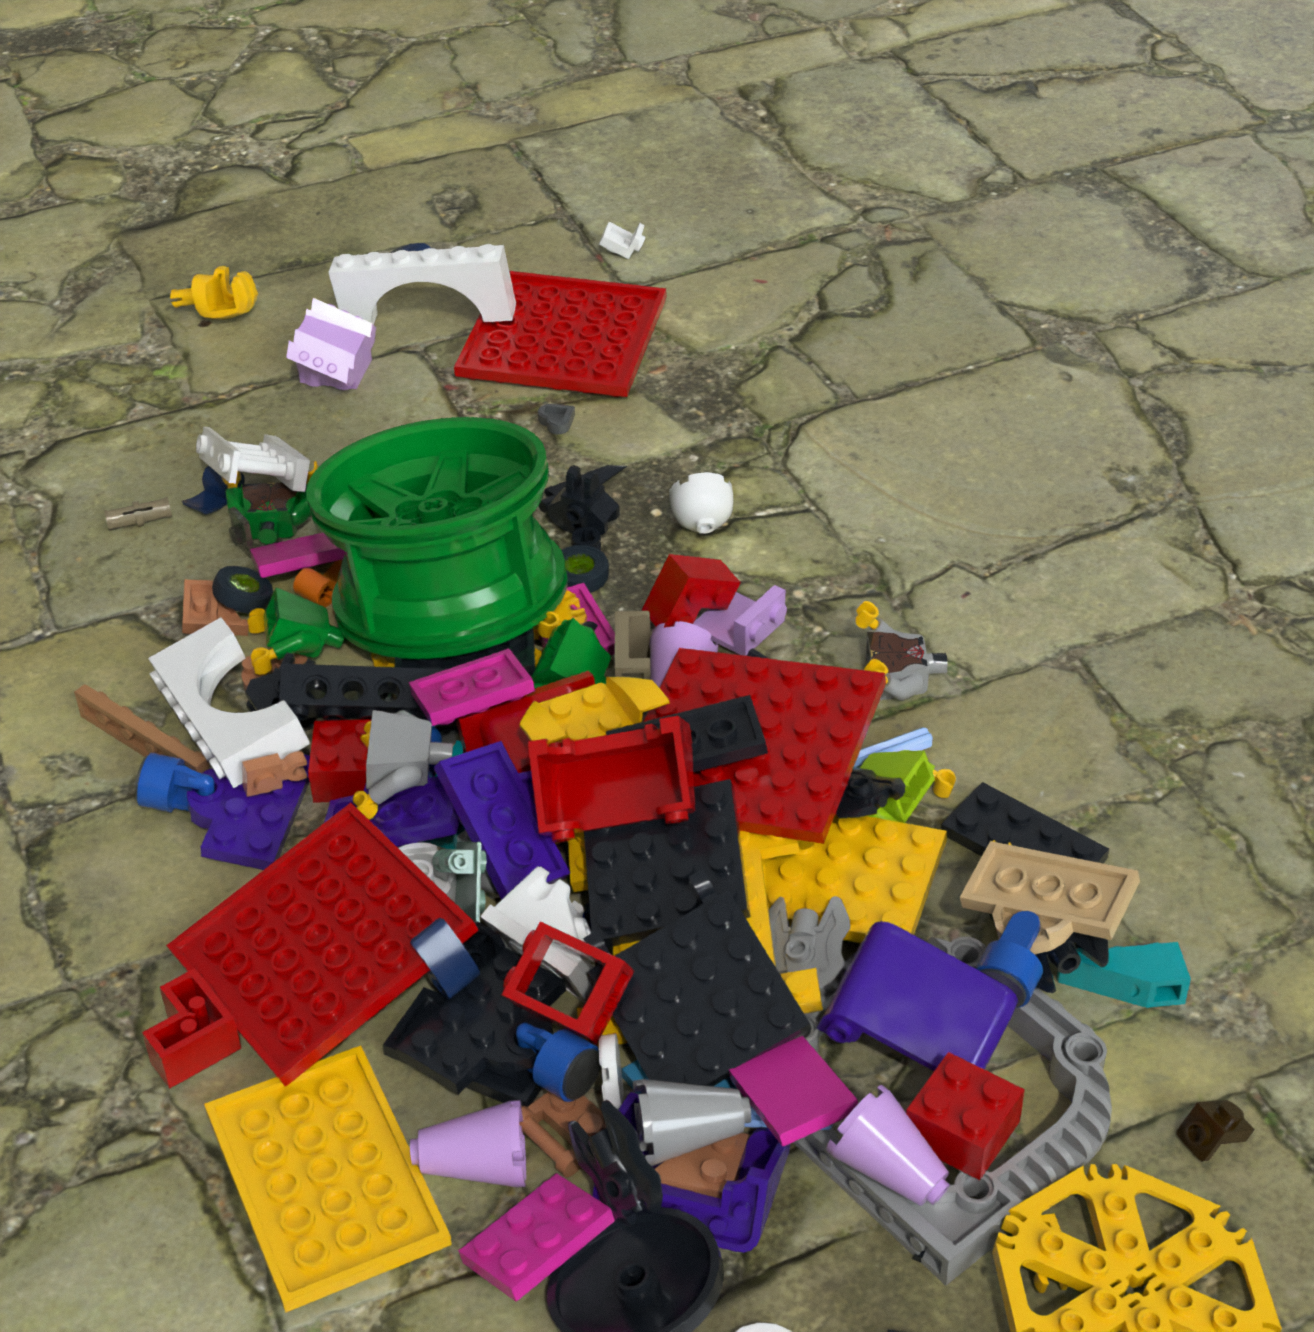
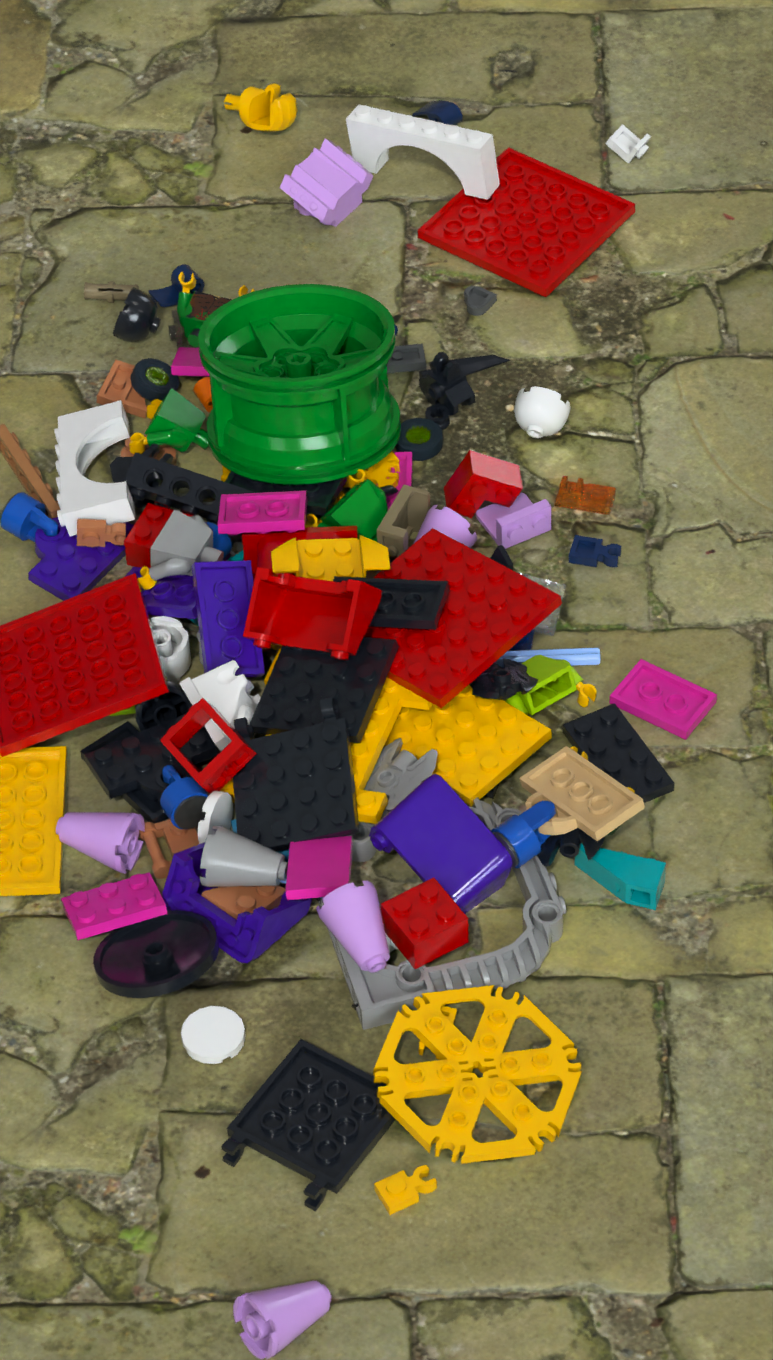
camera: 25 degrees right, 5 degrees up
(187, 529) = (137, 317): none -> black cylinder
(268, 458) = (207, 271): white fence -> none
(446, 958) = (138, 704): dark blue panel -> none
(469, 864) = (186, 641): sand green hinge -> none
(618, 1166) = (175, 884): black piece -> none
(799, 575) = (585, 496): none -> clear orange plate
(841, 630) = (590, 551): none -> dark blue plate
(898, 656) = (610, 588): torso -> none
(1032, 760) = (663, 699): none -> dark pink plate
(1211, 1125) = (610, 993): dark brown bracket -> none

